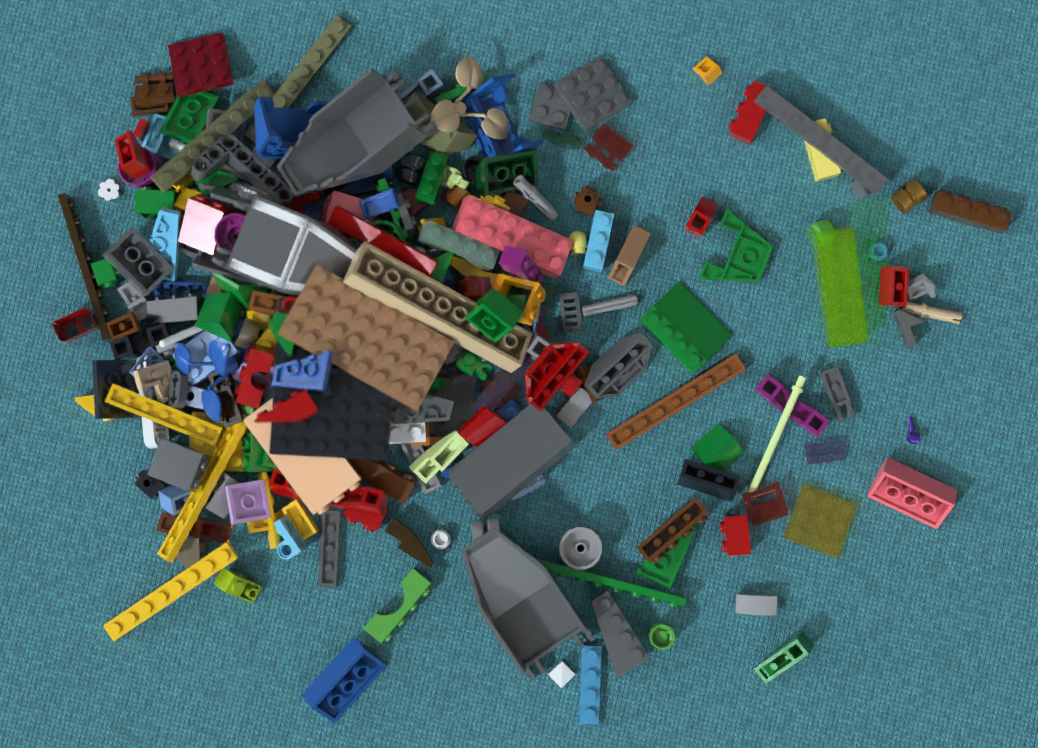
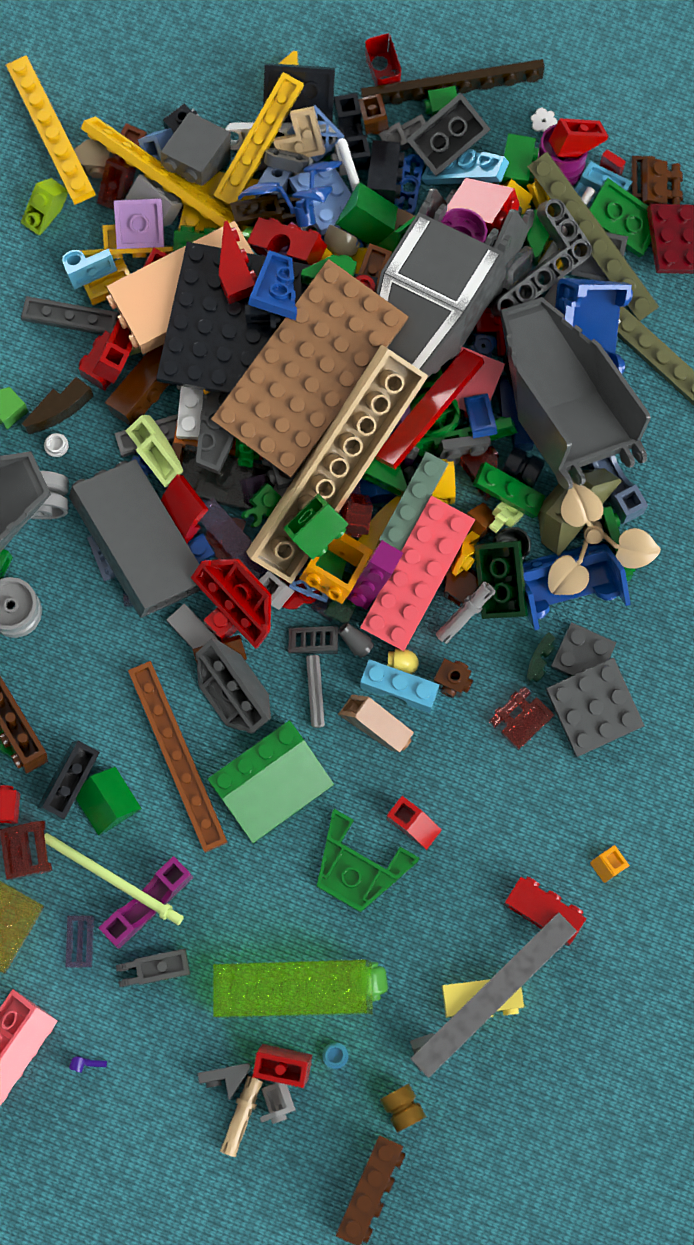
camera: 100 degrees right, 10 degrees down
(568, 277) = (357, 641): none -> dark grey cone

